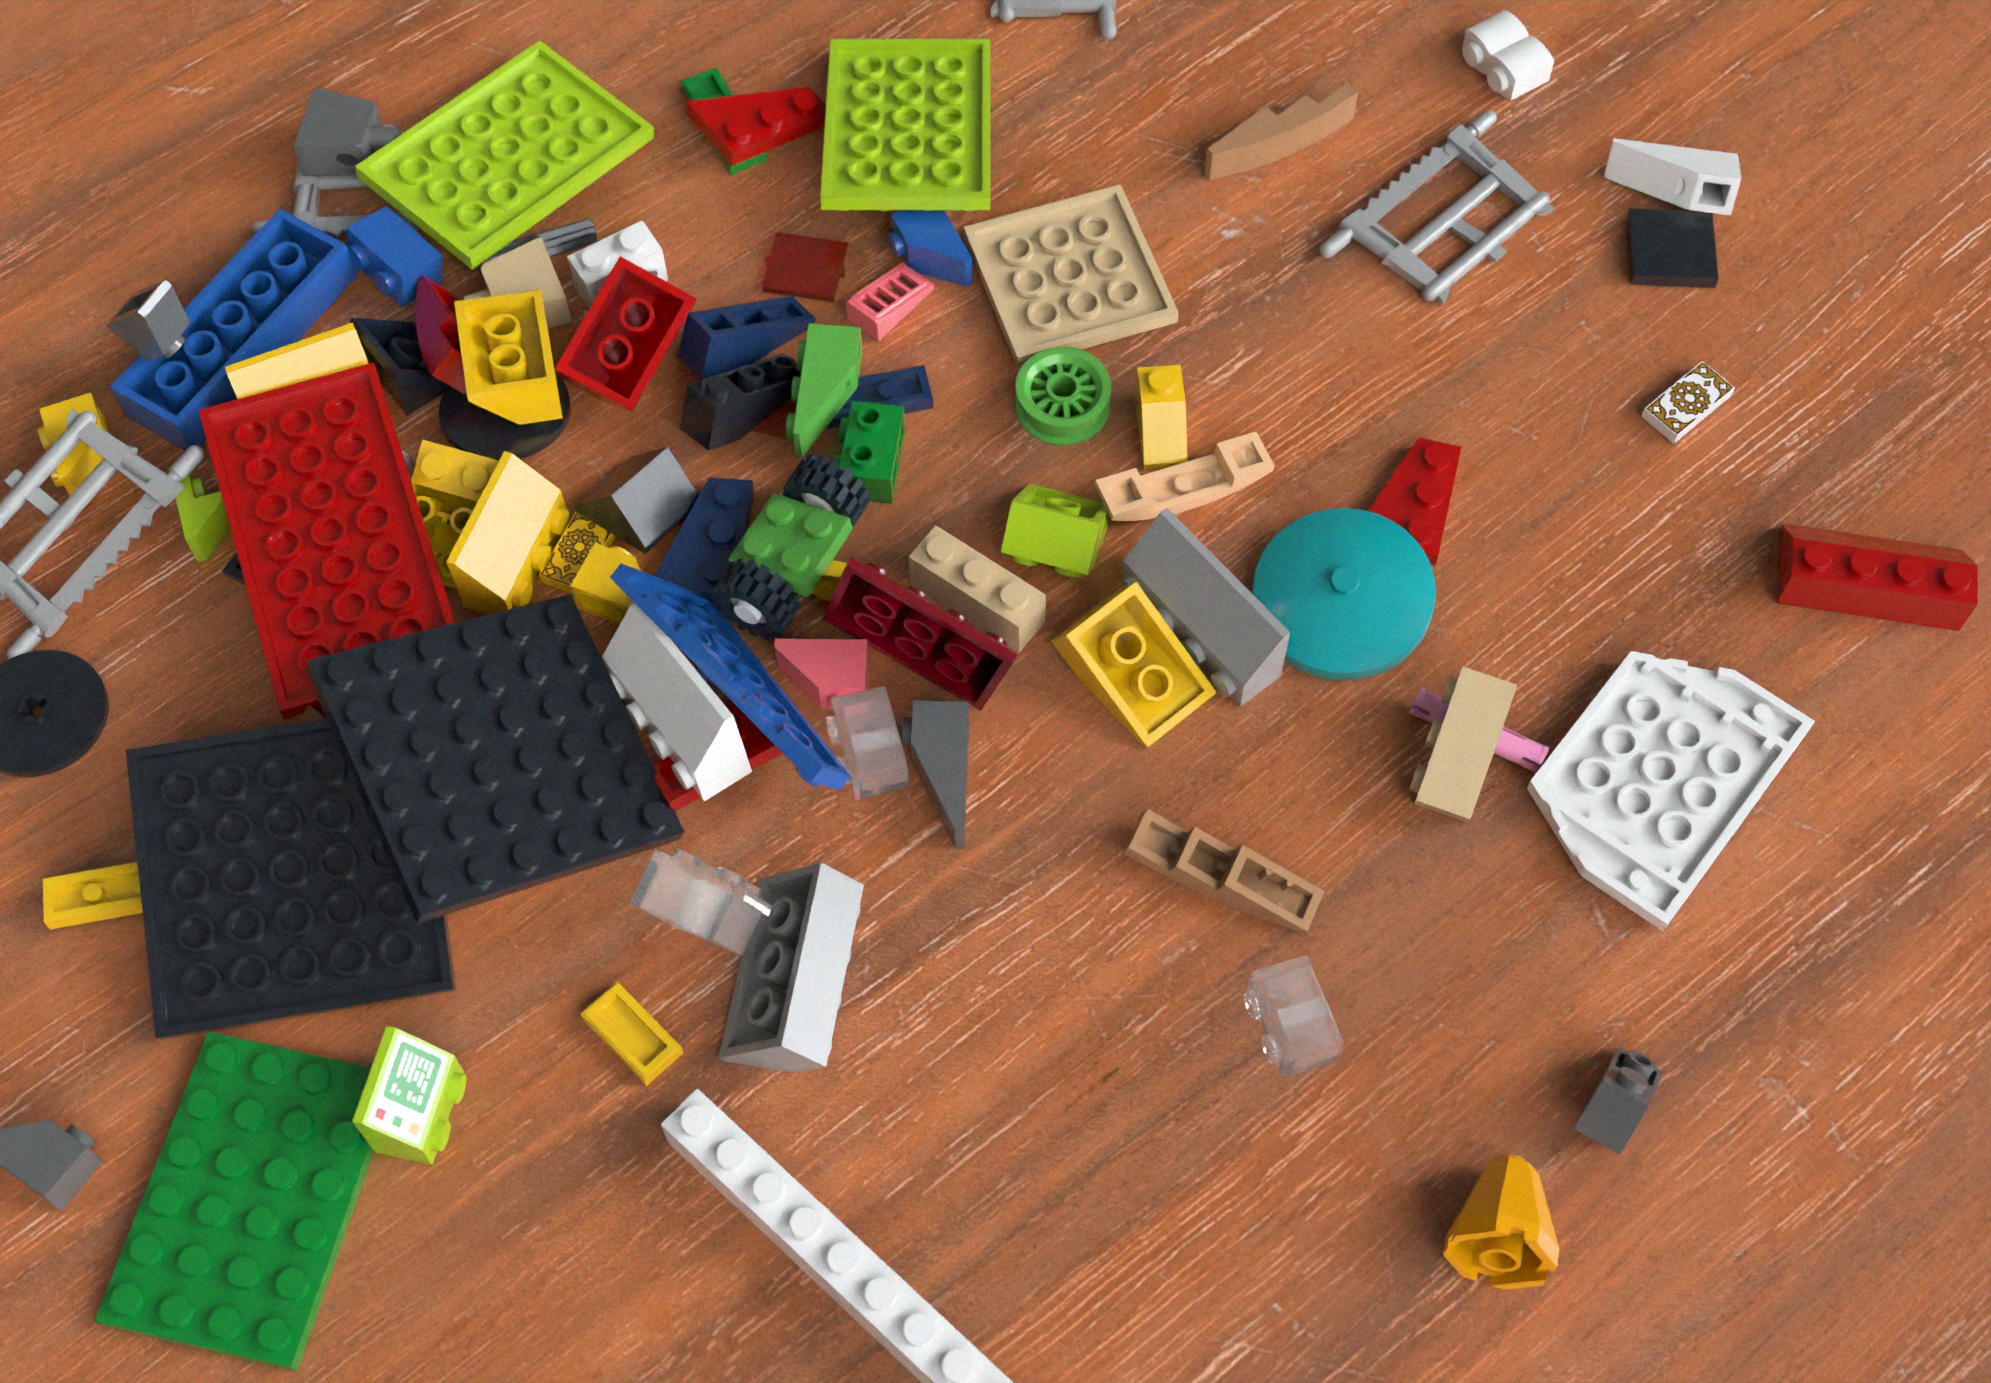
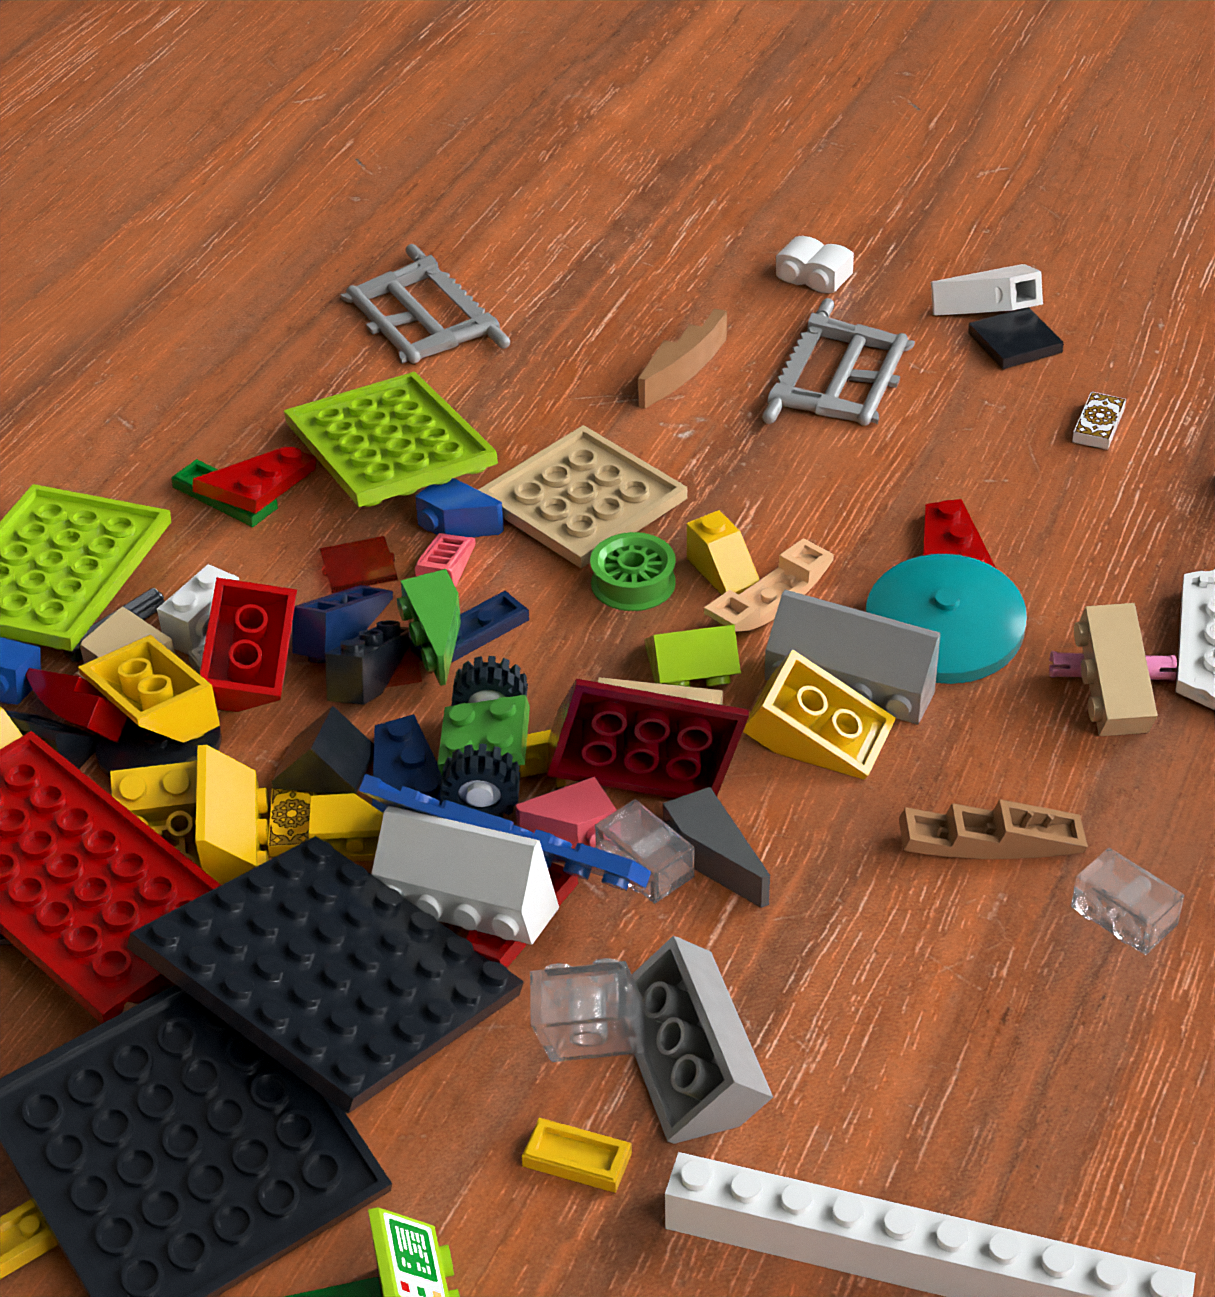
camera: 25 degrees left, 20 degrees down
(873, 446) = (506, 640): green brick -> none

